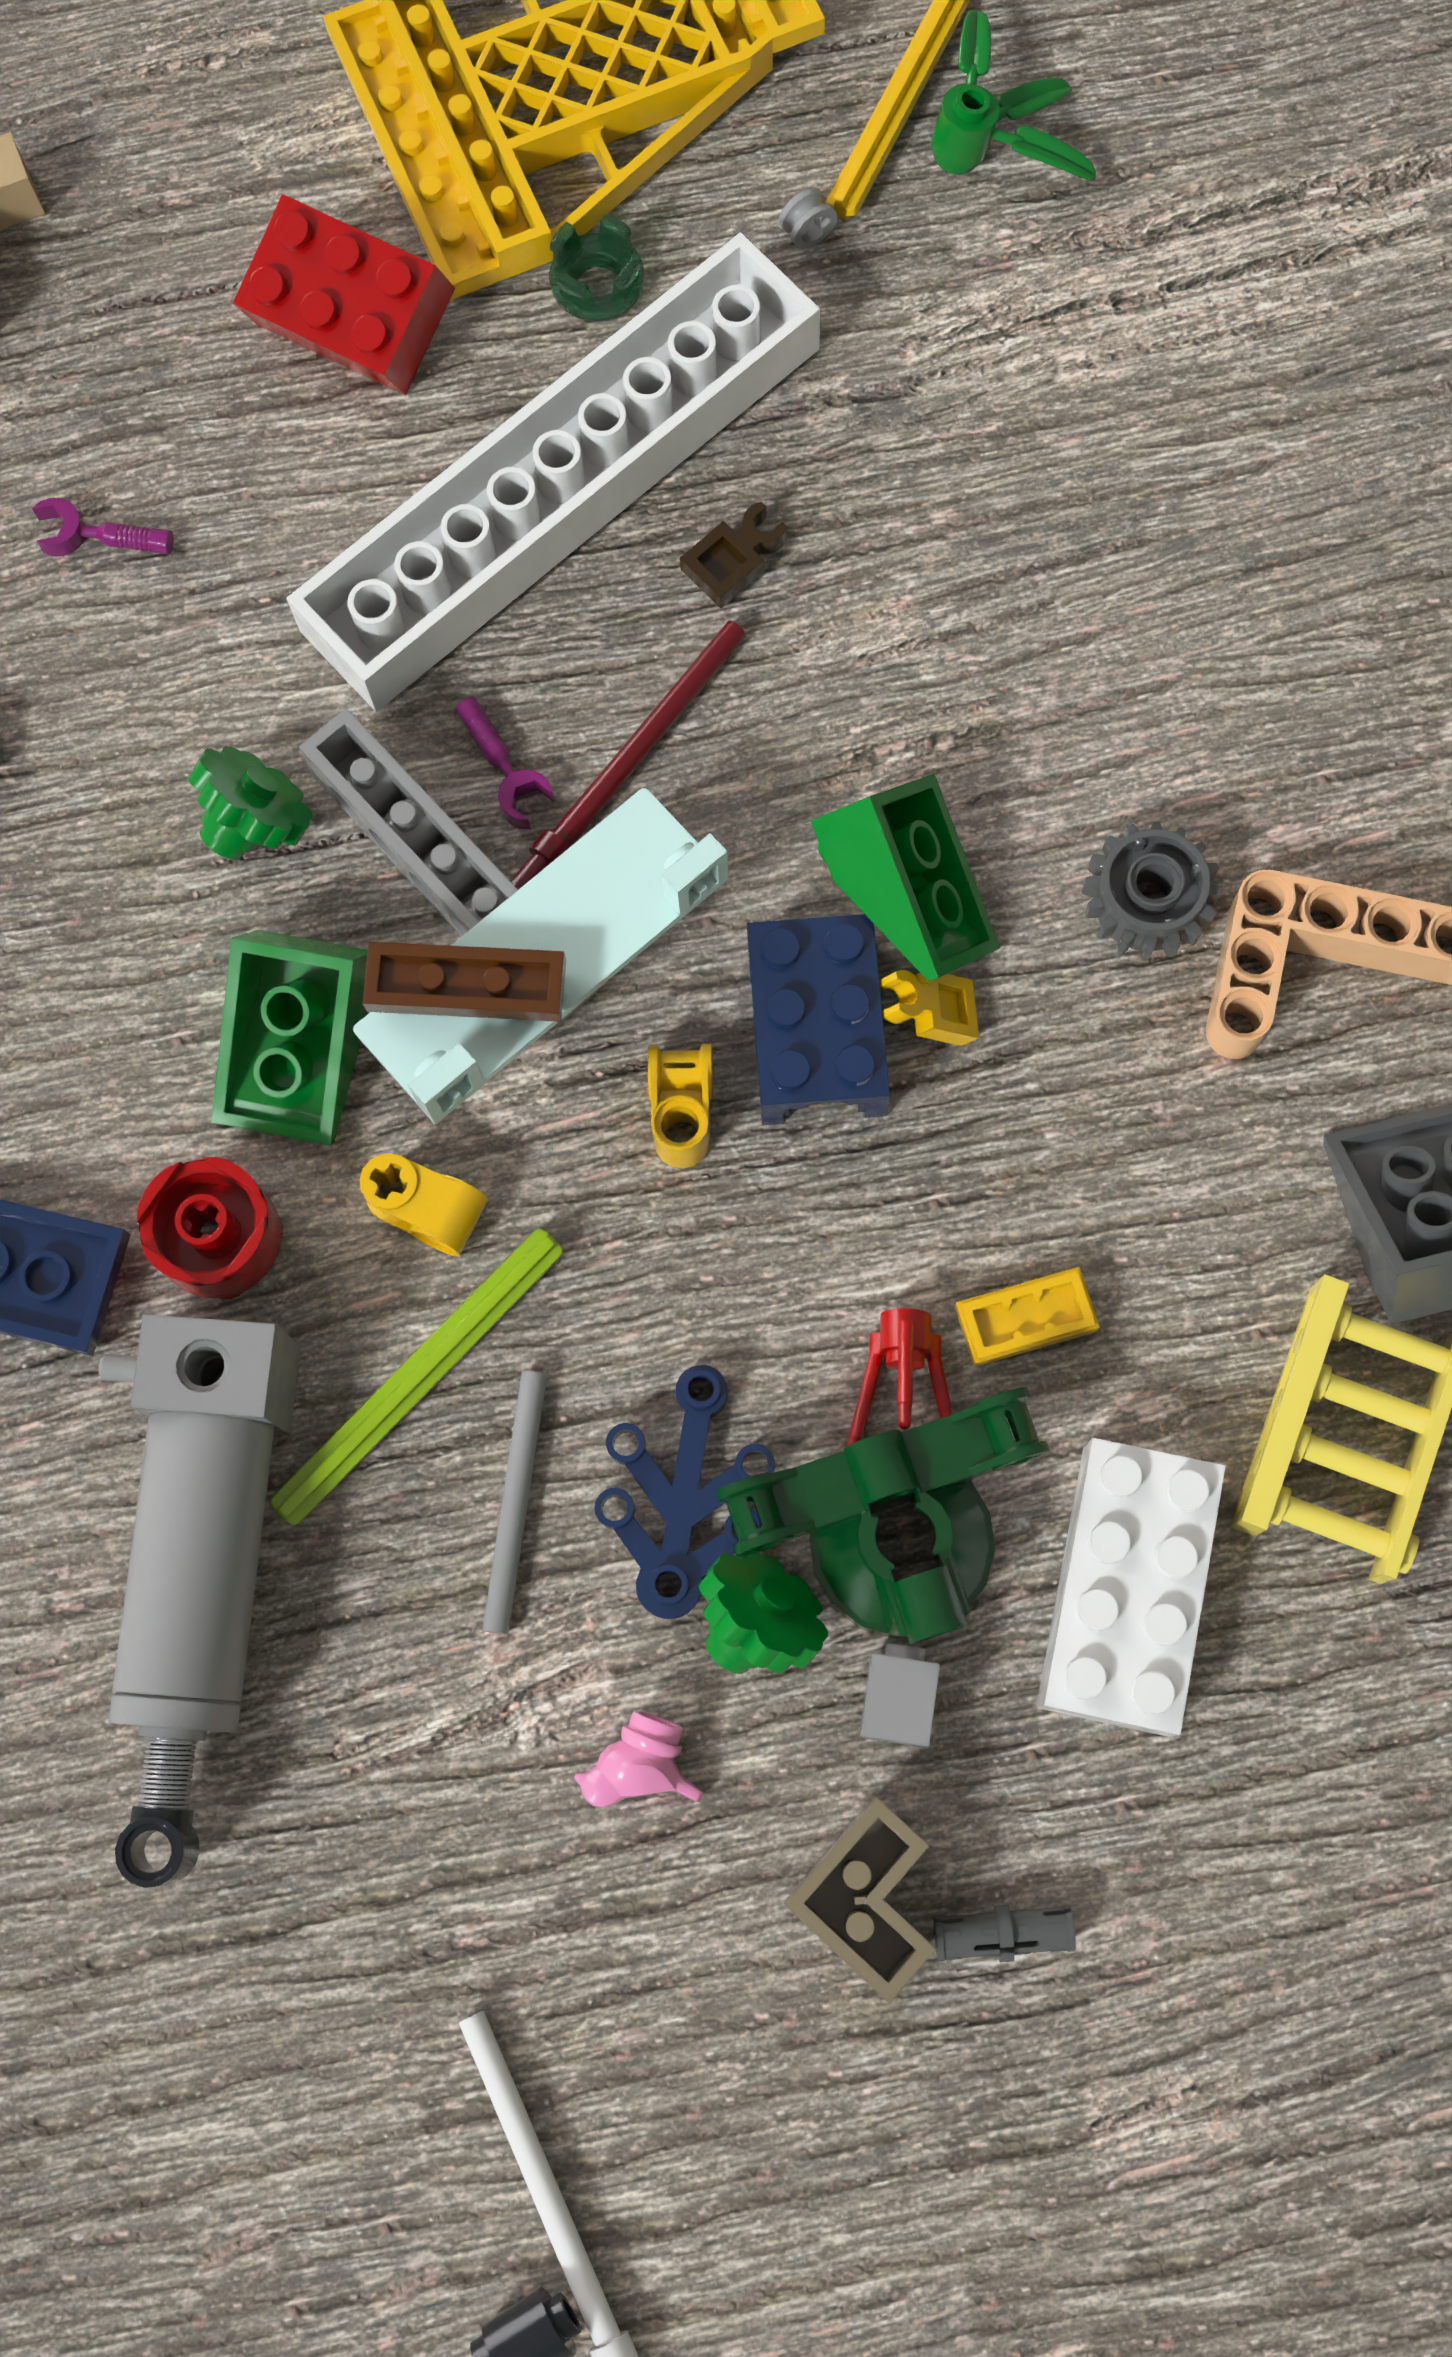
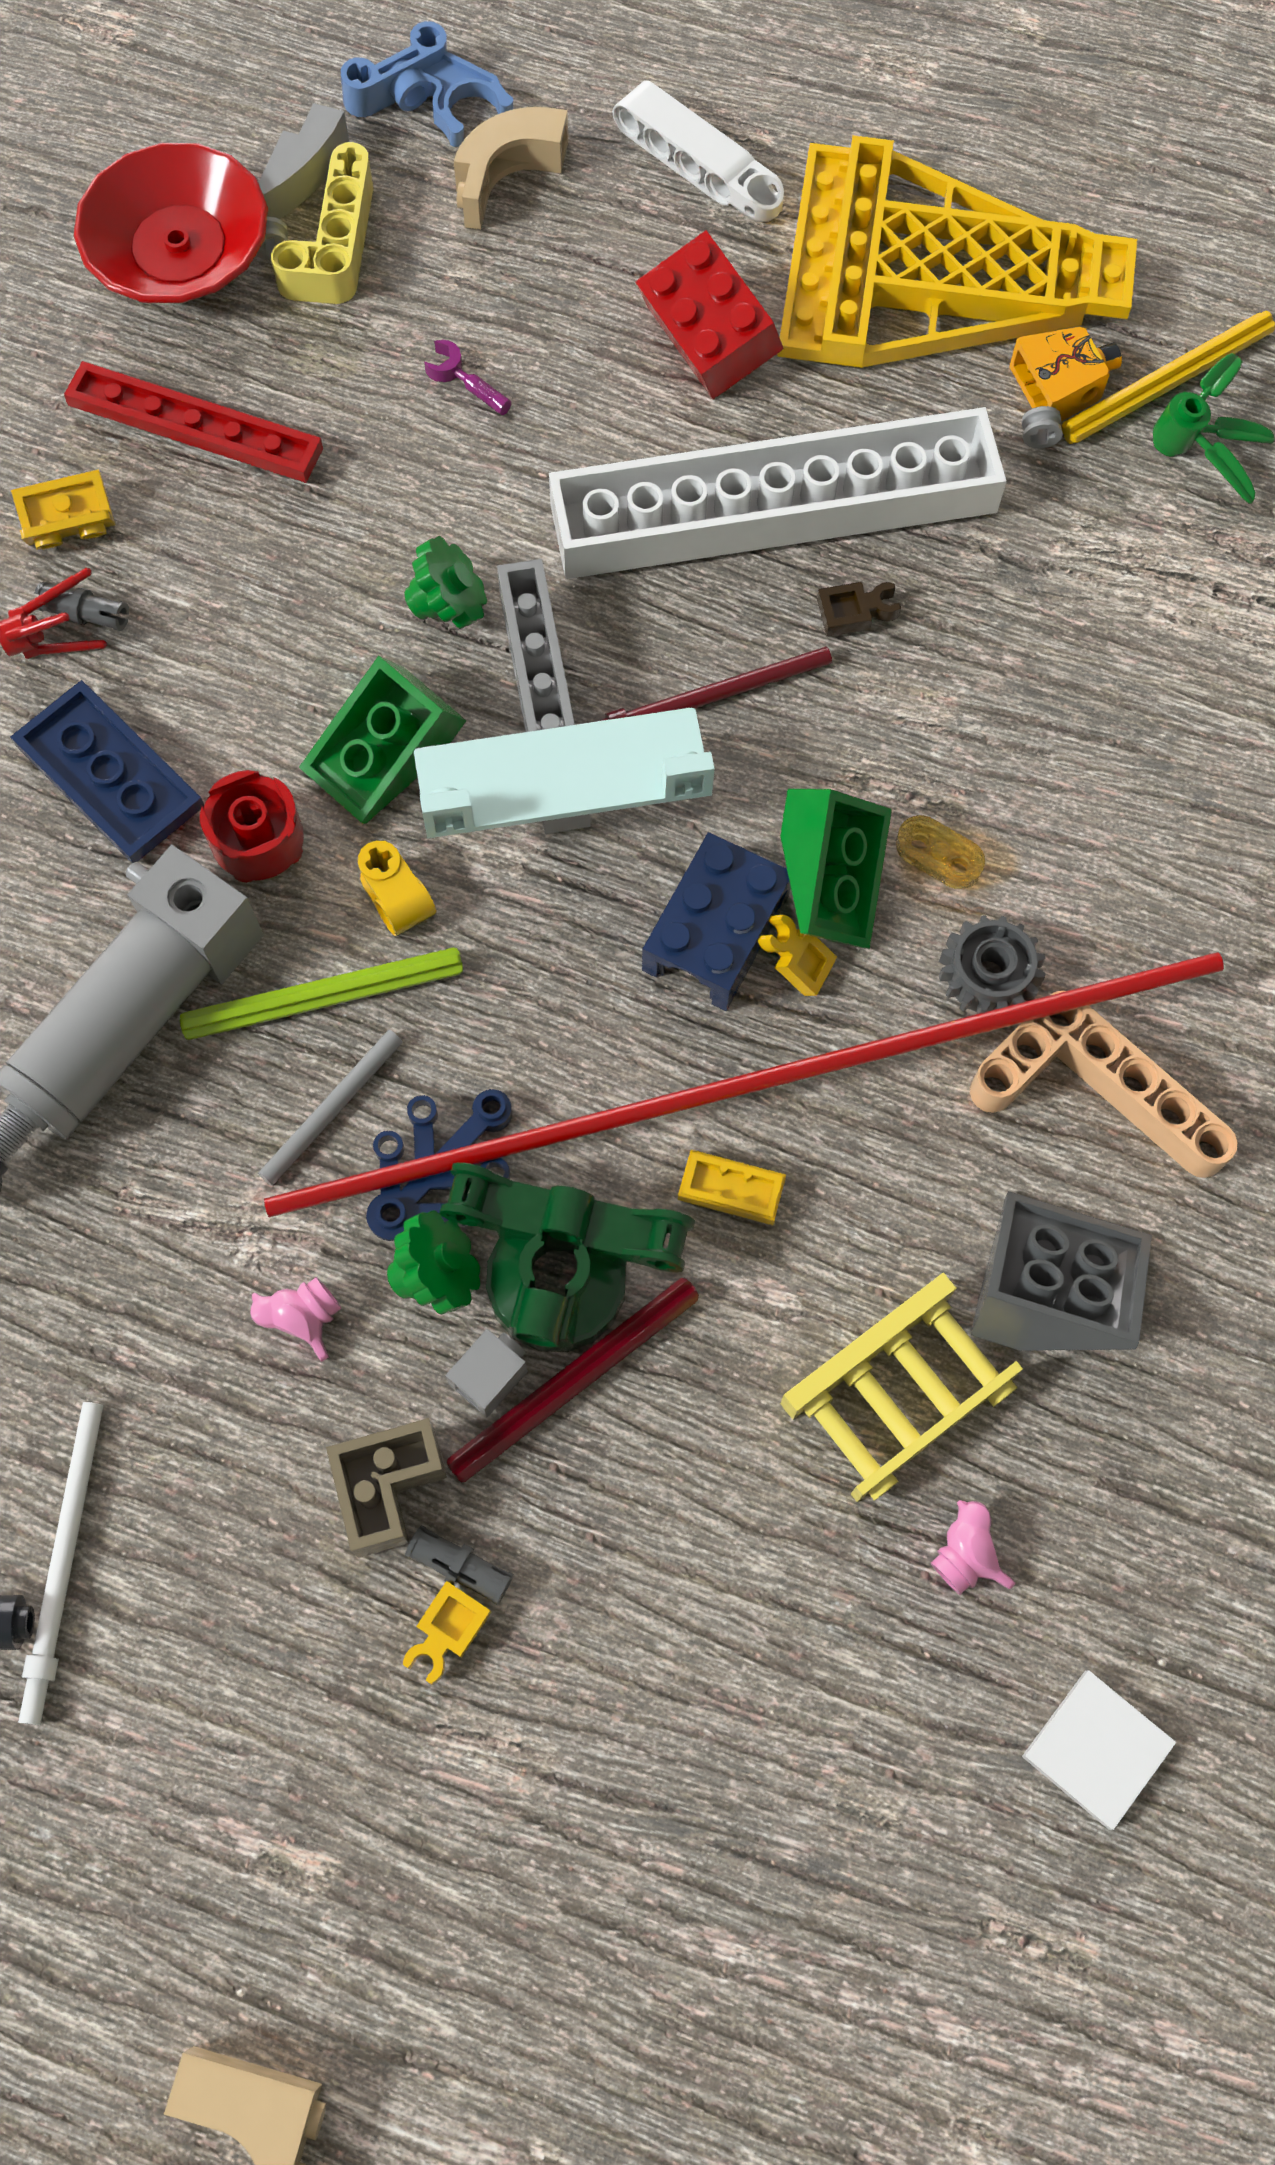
camera: 25 degrees right, 5 degrees down
(196, 98) = (698, 152): none -> white piece
(464, 981) = (500, 758): reddish brown plate -> none
(497, 754) = (624, 669): magenta piece -> none
(607, 250) = (876, 371): clear green piece -> none
(680, 1092) = (601, 916): yellow piece -> none
(789, 135) = (1063, 369): none -> light orange torso
(906, 1343) = (637, 1156): red plant -> none
(959, 1207) = (743, 1084): none -> red piece
(991, 1646) = (572, 1380): none -> dark red axle
(1008, 785) = (942, 850): none -> clear yellow plate
(1039, 2008) = (451, 1625): none -> yellow plate
(1131, 1587) = (684, 1395): white brick -> none

